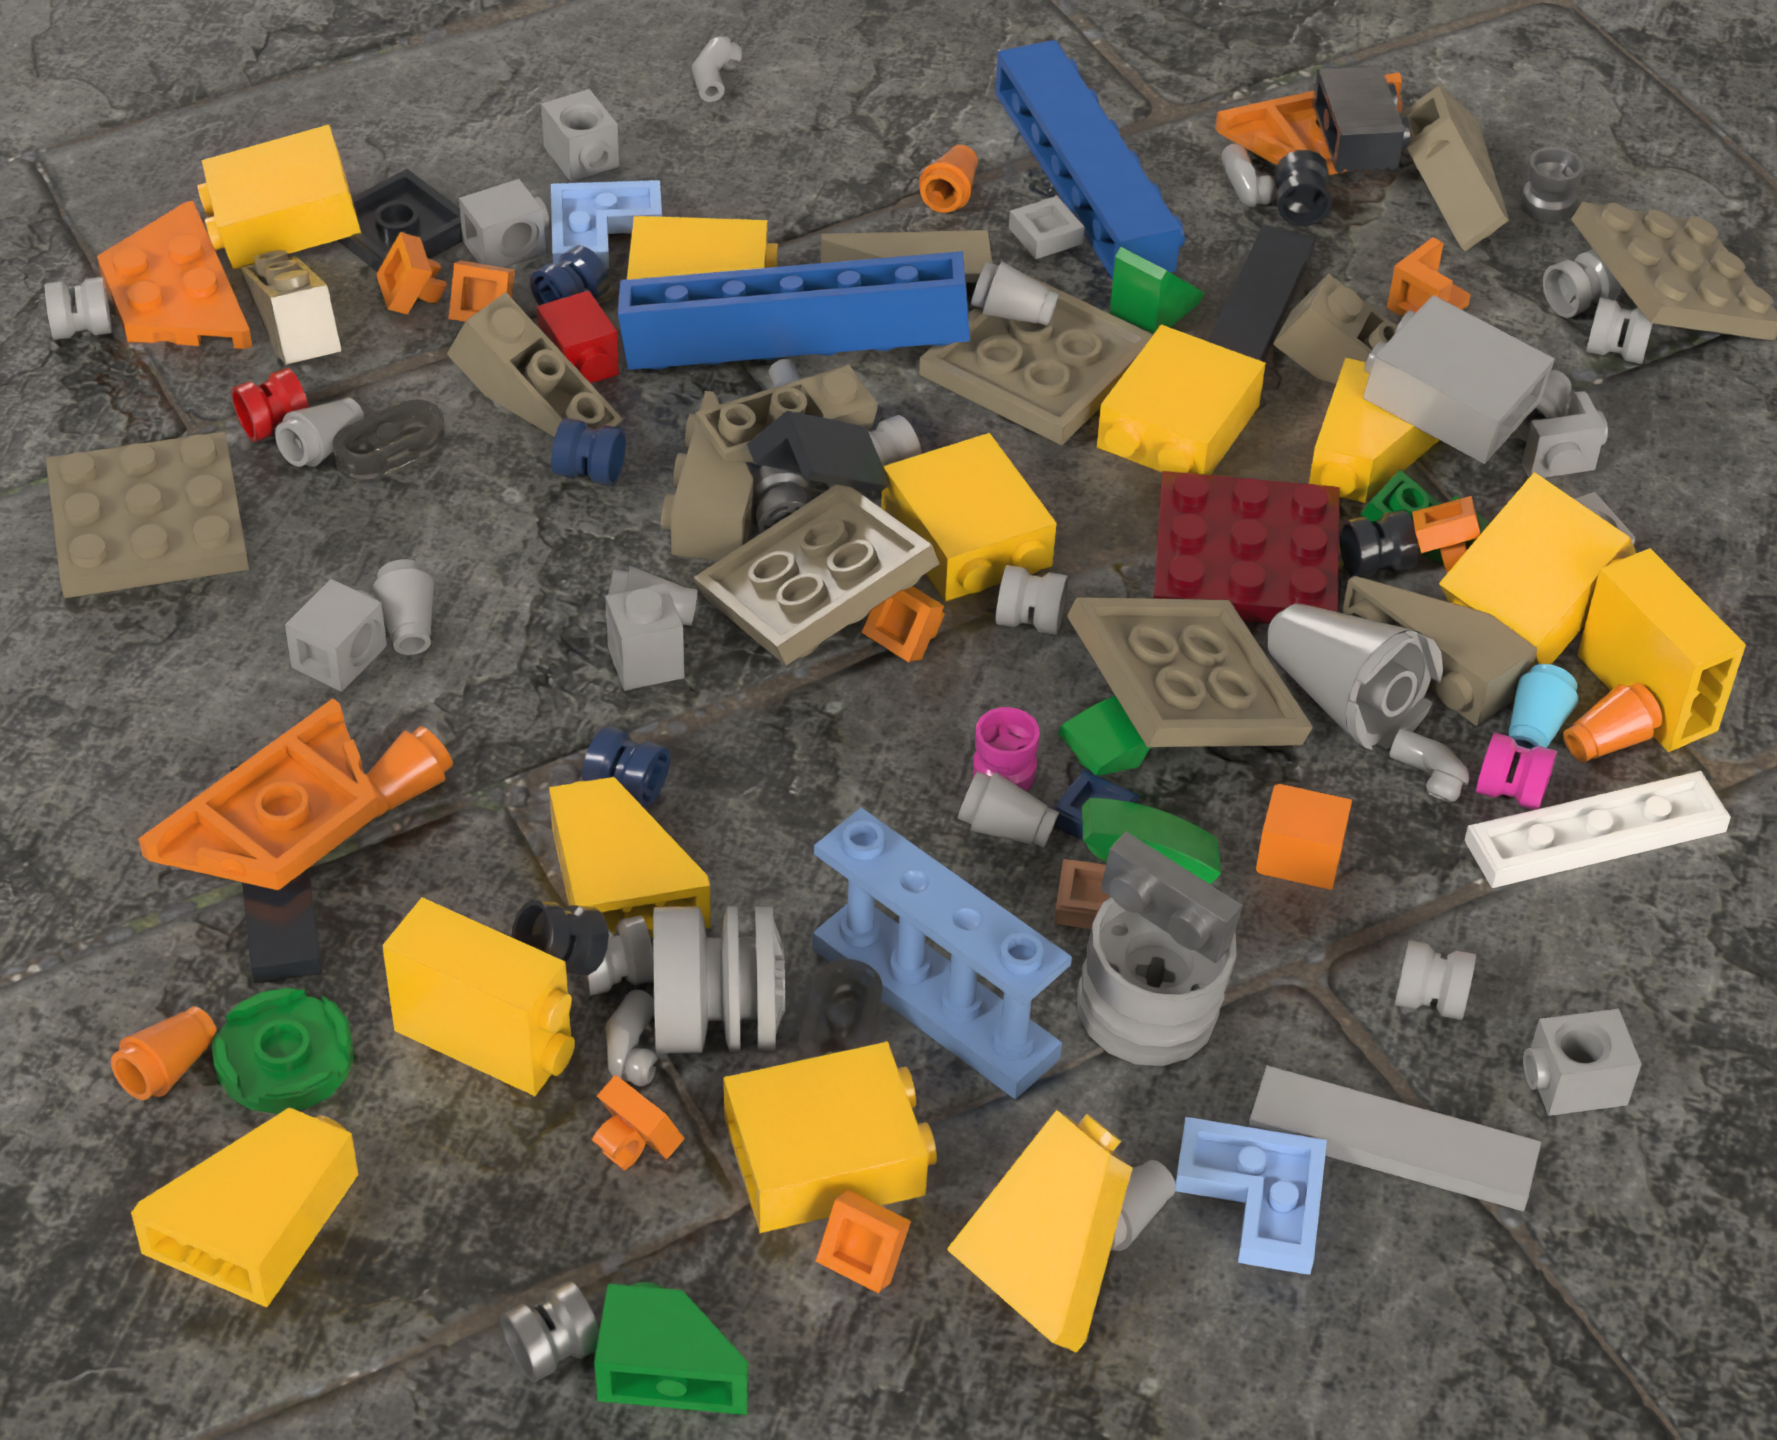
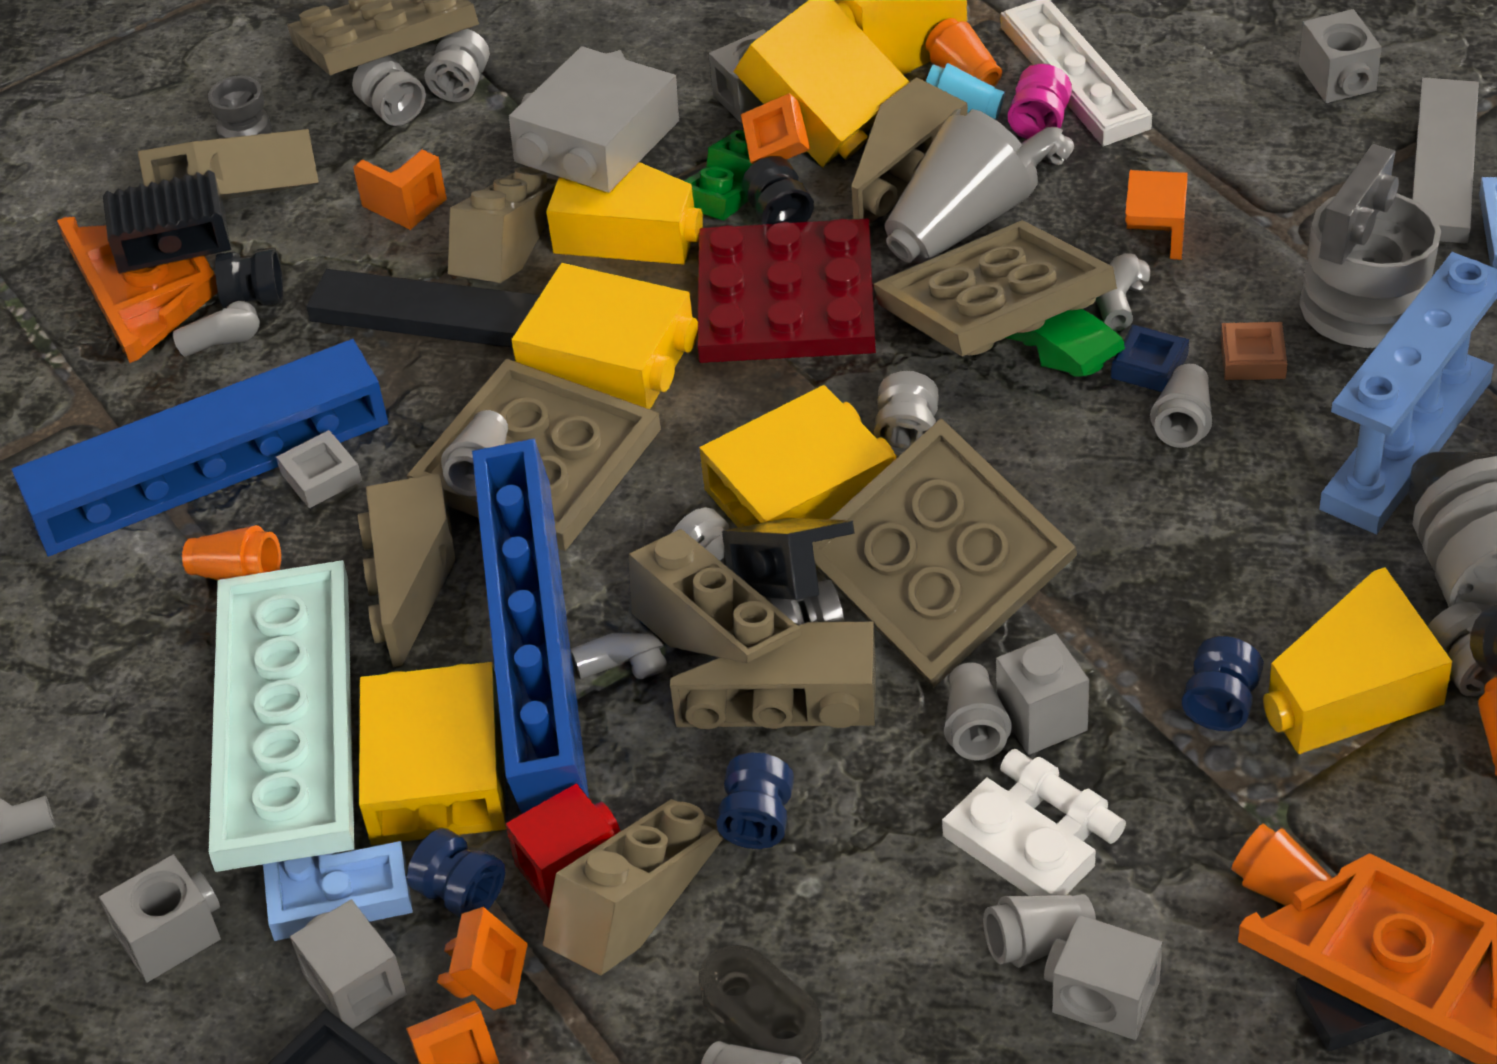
camera: 90 degrees left, 0 degrees up
(504, 625) = (1019, 841): none -> white plate
(727, 180) = (281, 718): none -> light aqua plate
(1007, 744) = (1115, 409): dark pink wheel -> none
(1149, 294) = (433, 374): green slope -> none
(1170, 835) = (1201, 301): green slope -> none
(1199, 791) = (1114, 304): none -> light grey arm
(1435, 979) = (1286, 134): light grey wheel -> none

